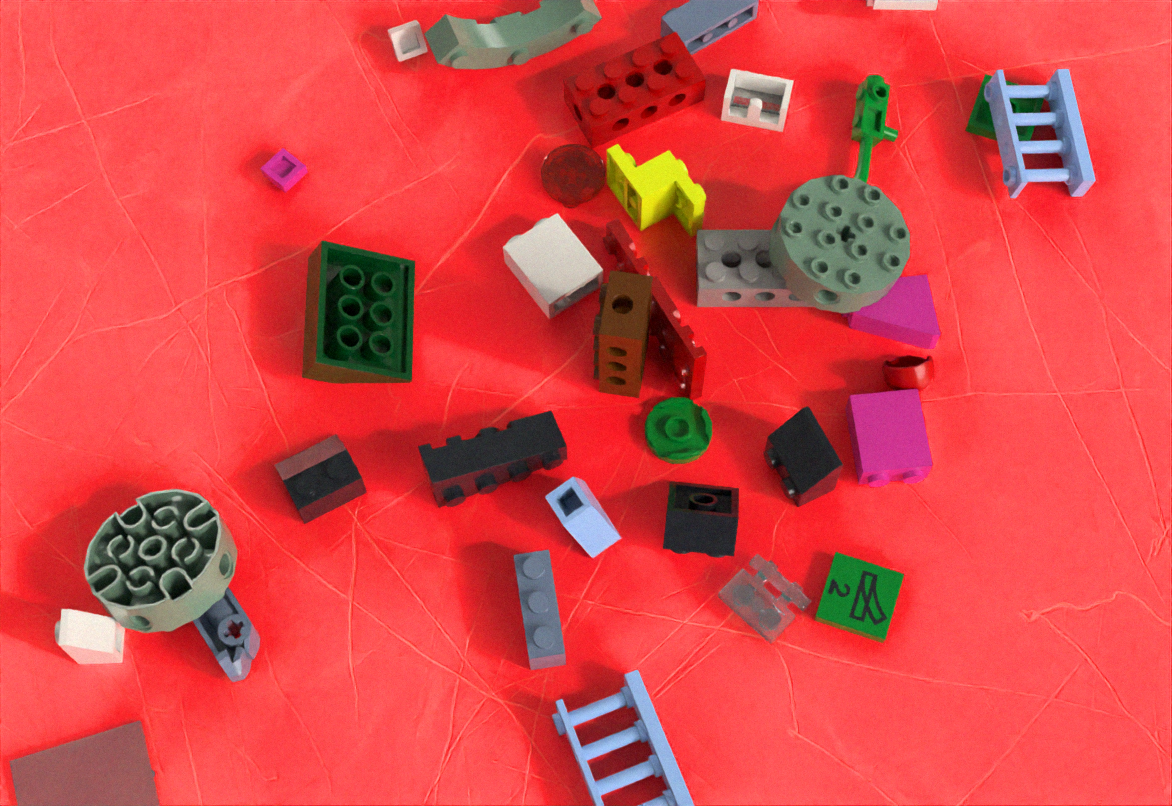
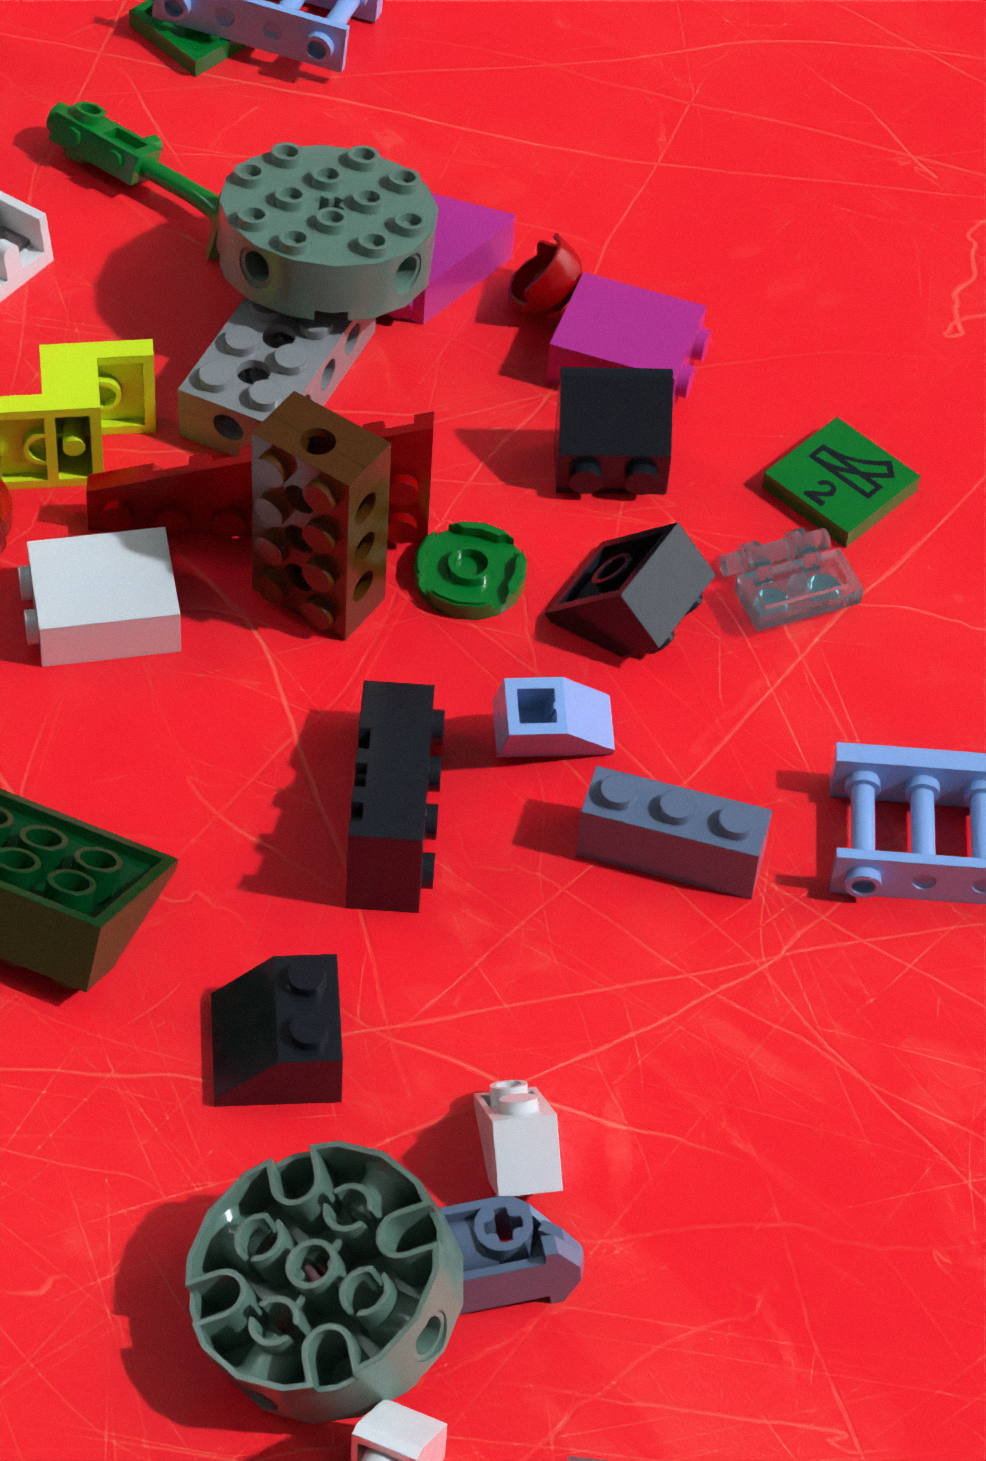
camera: 70 degrees left, 15 degrees down
(305, 615) = (519, 1139): none -> white slope

